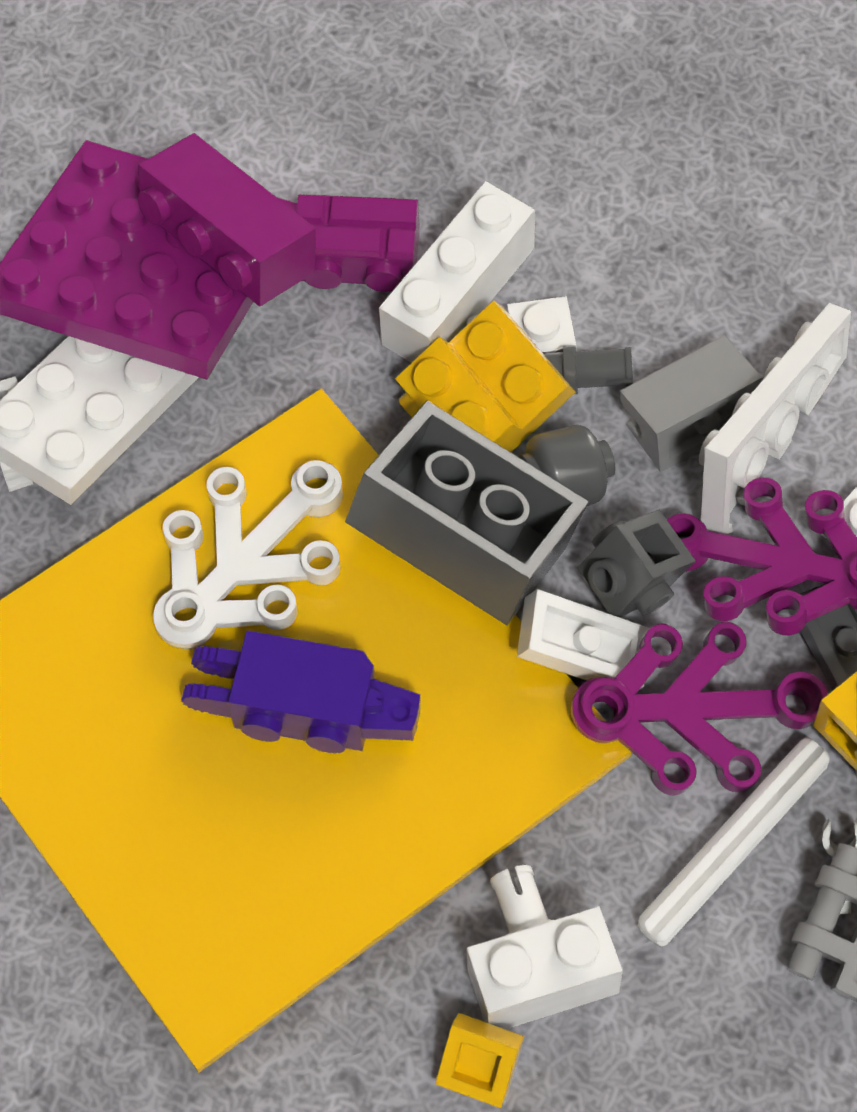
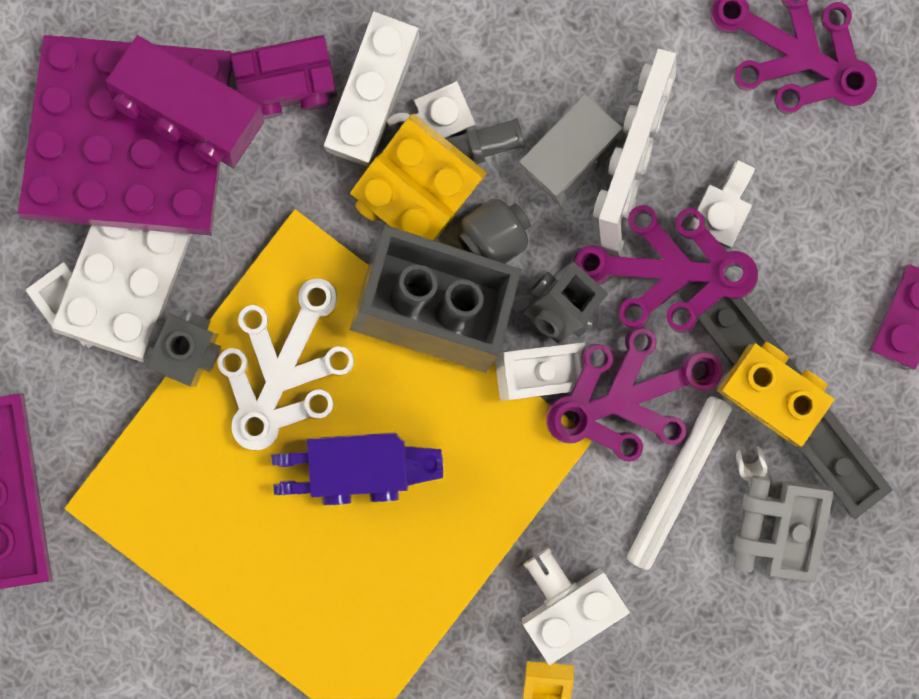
camera: 25 degrees left, 25 degrees up
(125, 493) = (166, 353): none -> dark grey brick

